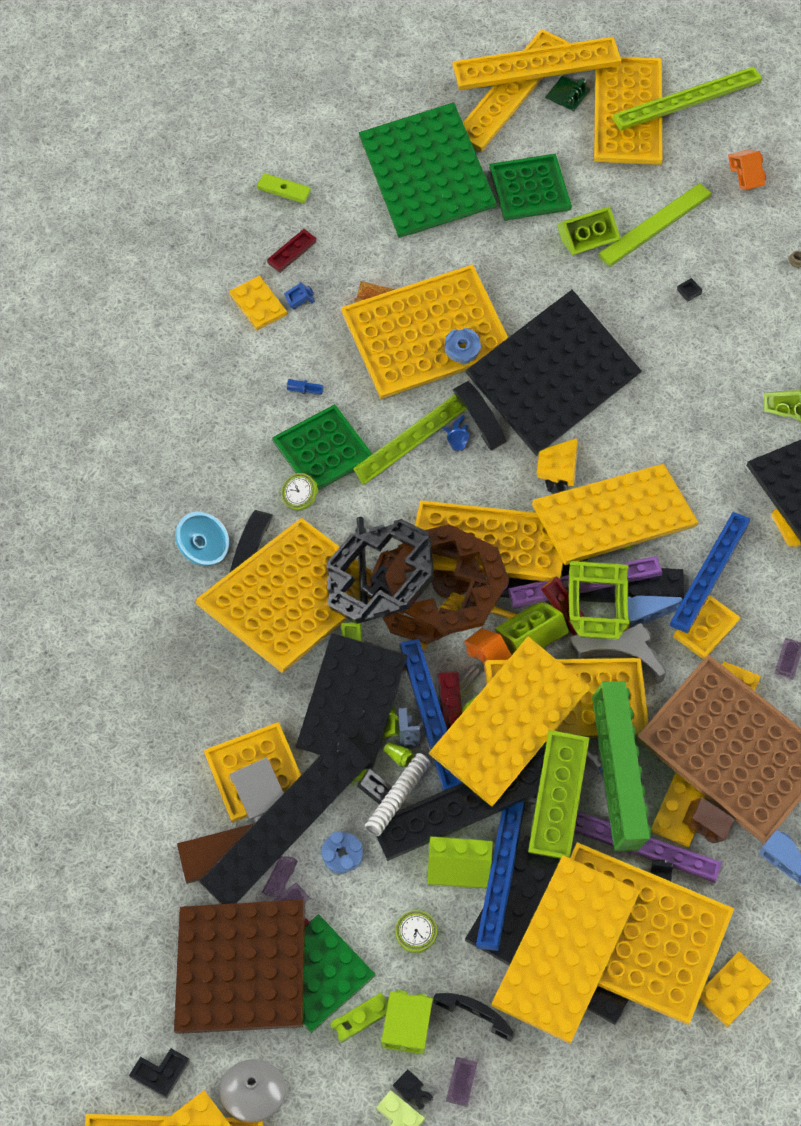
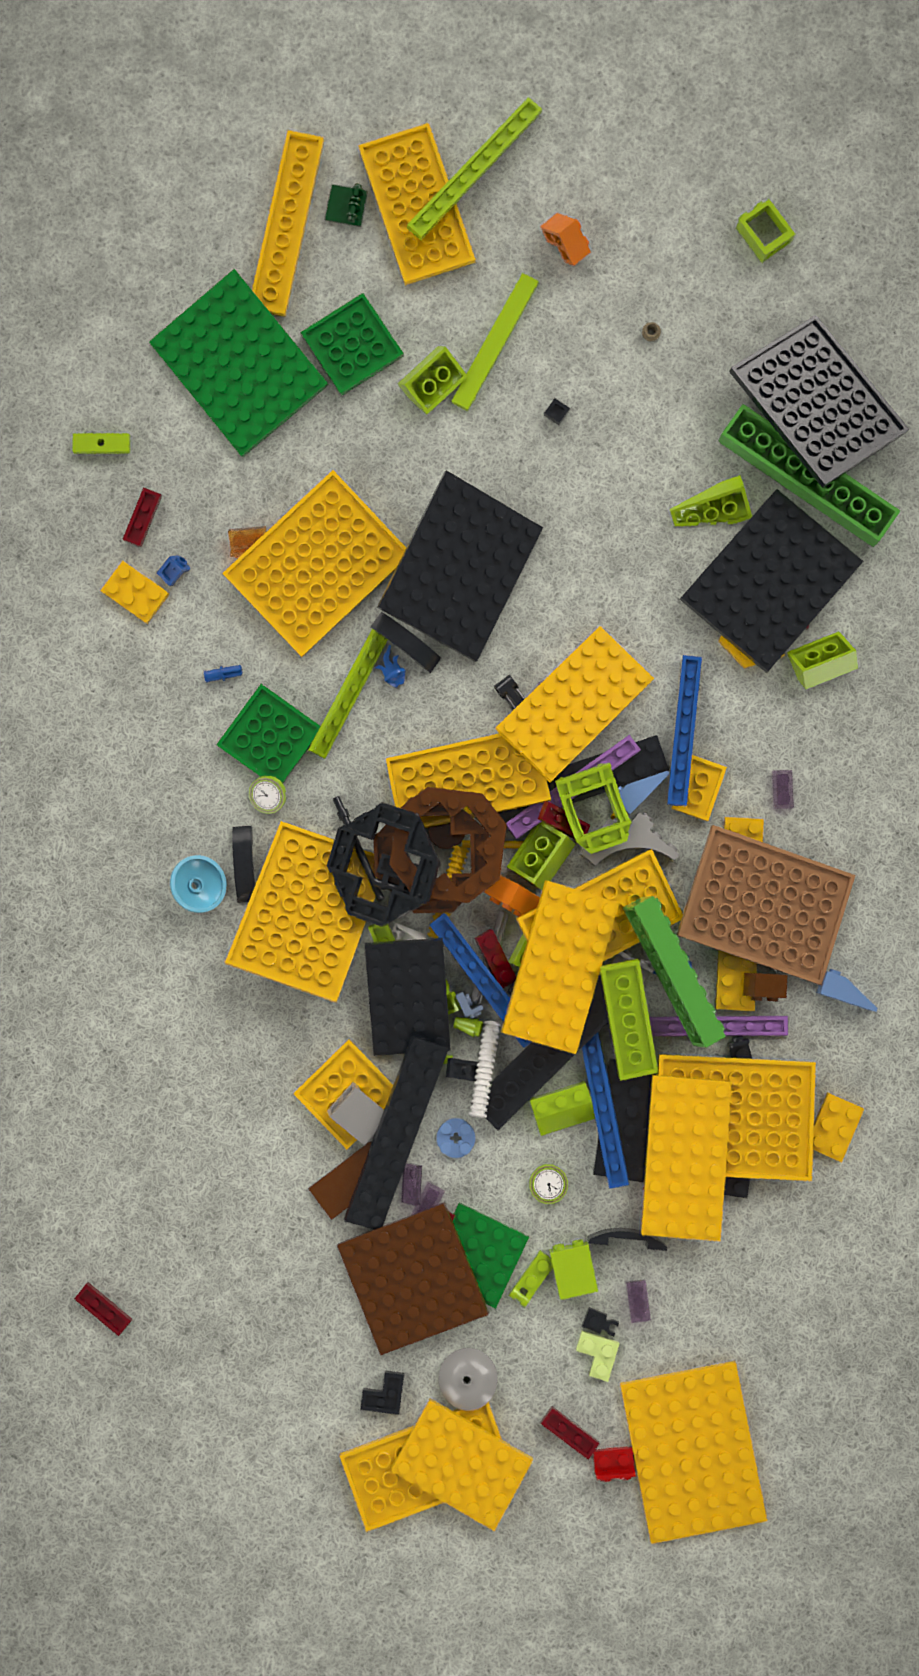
camera: 20 degrees left, 25 degrees up
(458, 354) = (369, 565): medium blue plate -> none
(536, 63) = (301, 182): yellow plate -> none
(558, 462) = (501, 666): yellow wing -> none

